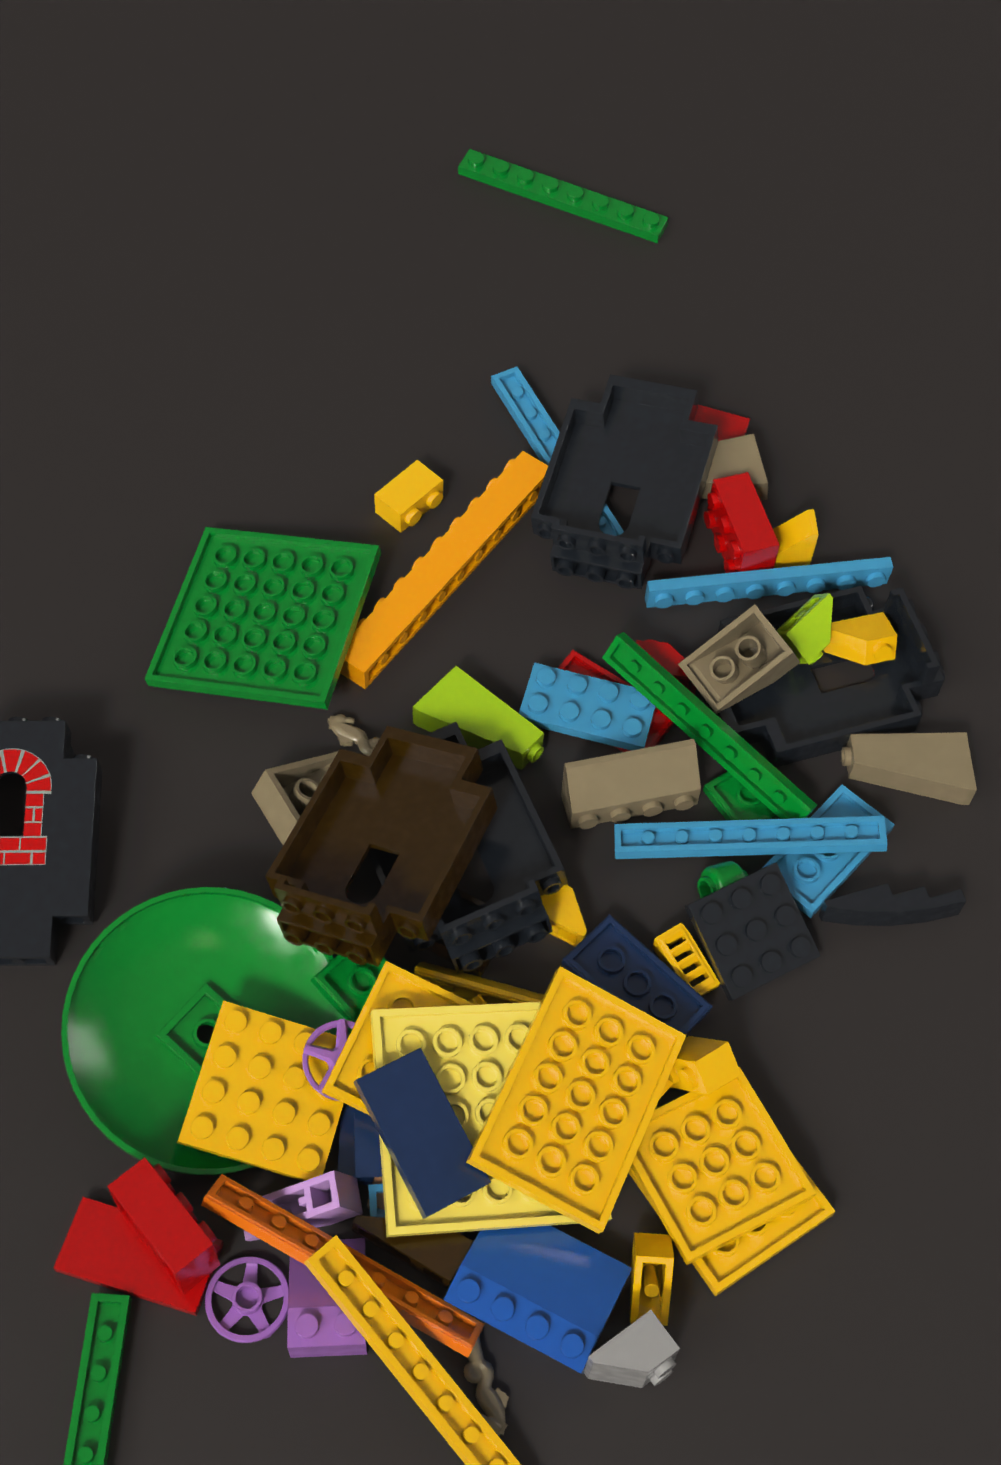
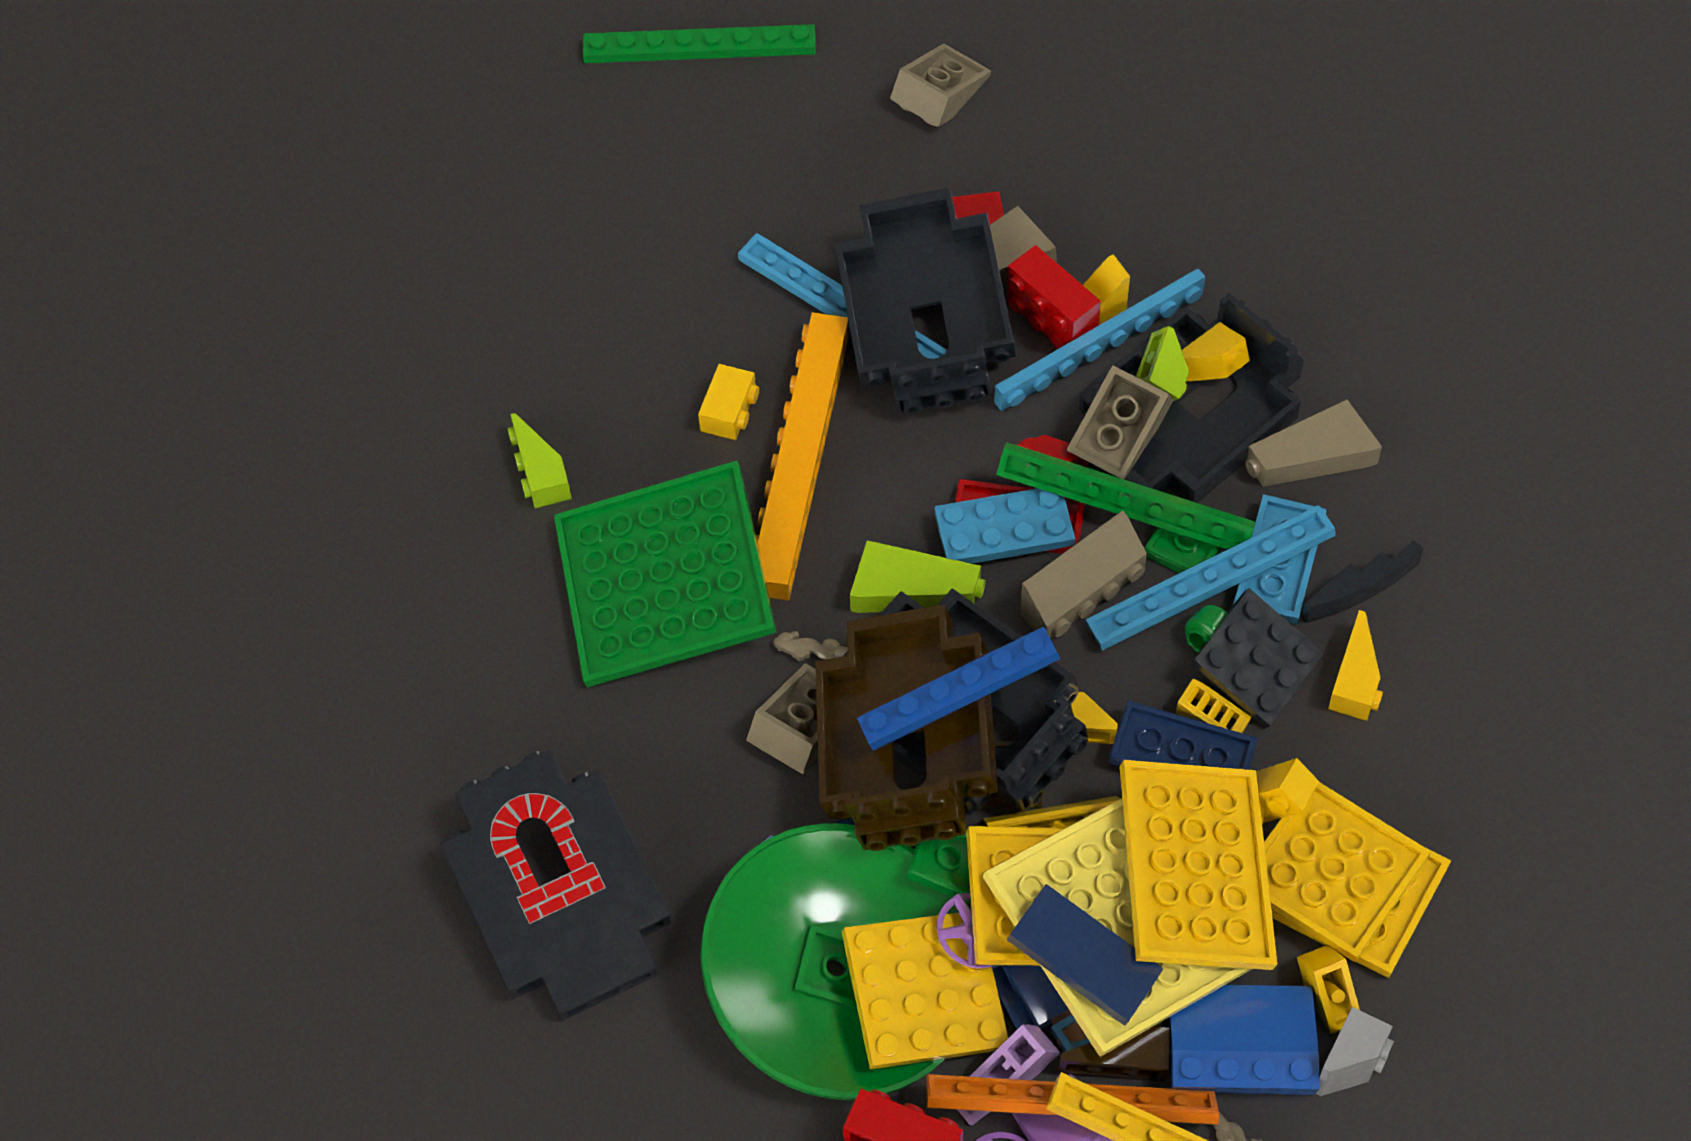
camera: 20 degrees left, 0 degrees up
(219, 487) = (542, 464): none -> lime slope
(442, 829) = (958, 688): none -> blue plate
(747, 307) = (938, 84): none -> dark tan slope
(837, 995) = (1359, 675): none -> yellow slope

